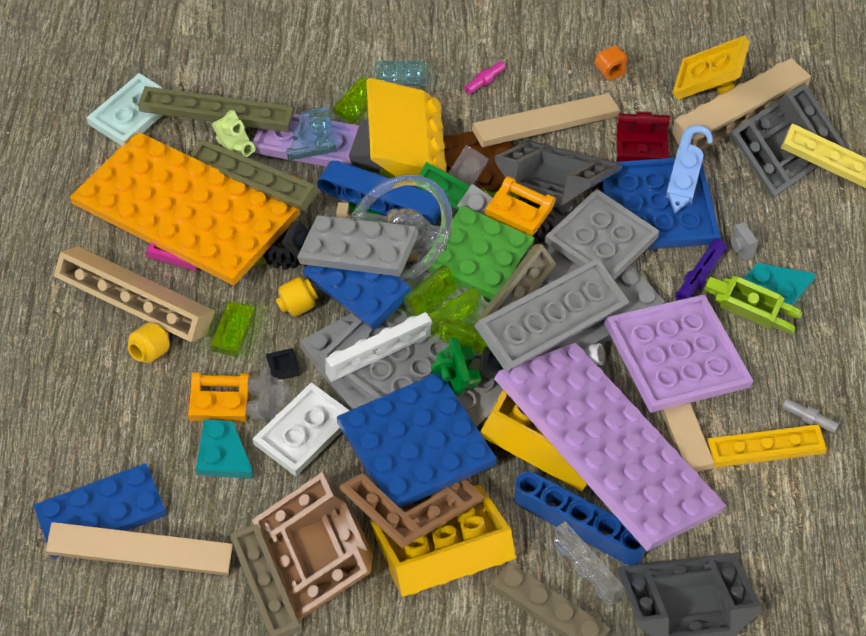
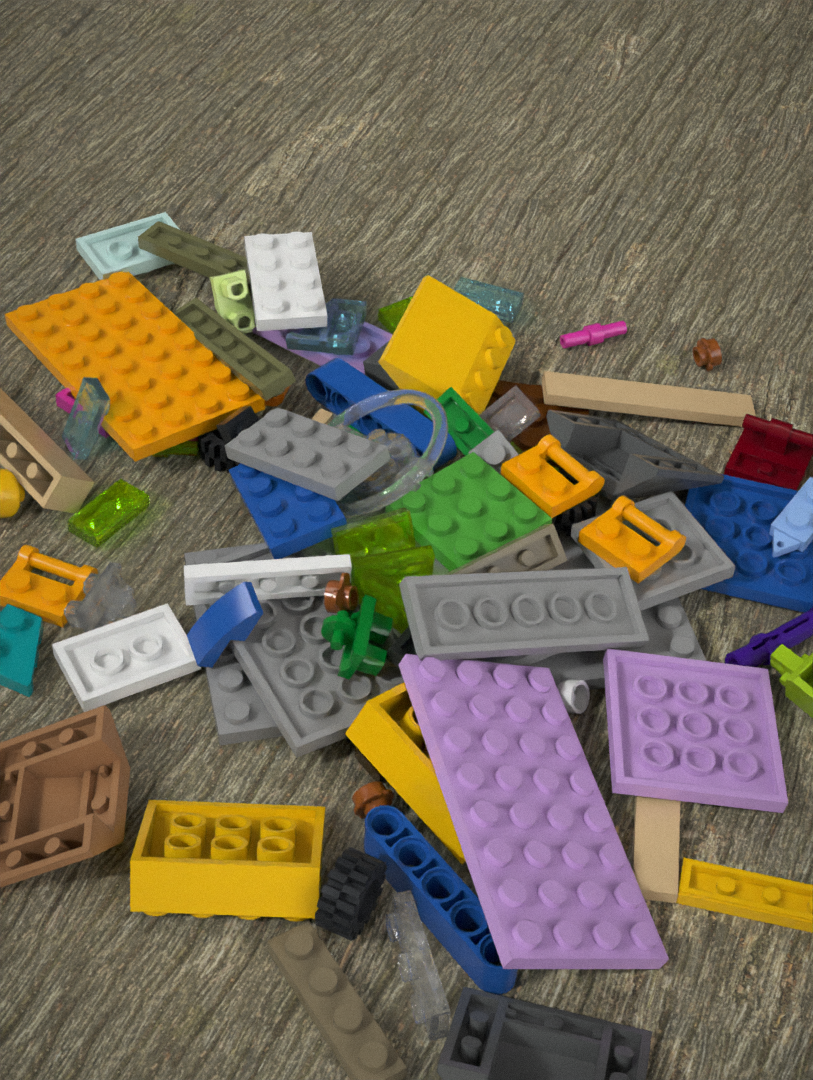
camera: 20 degrees right, 10 degrees down
(183, 264) = (86, 418): none -> clear light blue plate
(264, 109) = (285, 281): none -> white plate
(283, 364) = (148, 574): black tile -> none
(296, 297) = (209, 501): yellow head -> none
(365, 383) = (226, 620): none -> blue slope
(416, 440) = (254, 714): blue plate -> none
(417, 518) = (211, 786): medium nougat slope -> none
(430, 342) = (340, 595): none -> dark orange plate
(509, 470) = (371, 796): none -> dark orange plate
(530, 536) = (350, 893): none -> black tyre
(566, 68) = (707, 353): none -> dark orange plate
(587, 241) = (625, 547): none -> light orange plate
(611, 62) = (771, 362): orange plate -> none

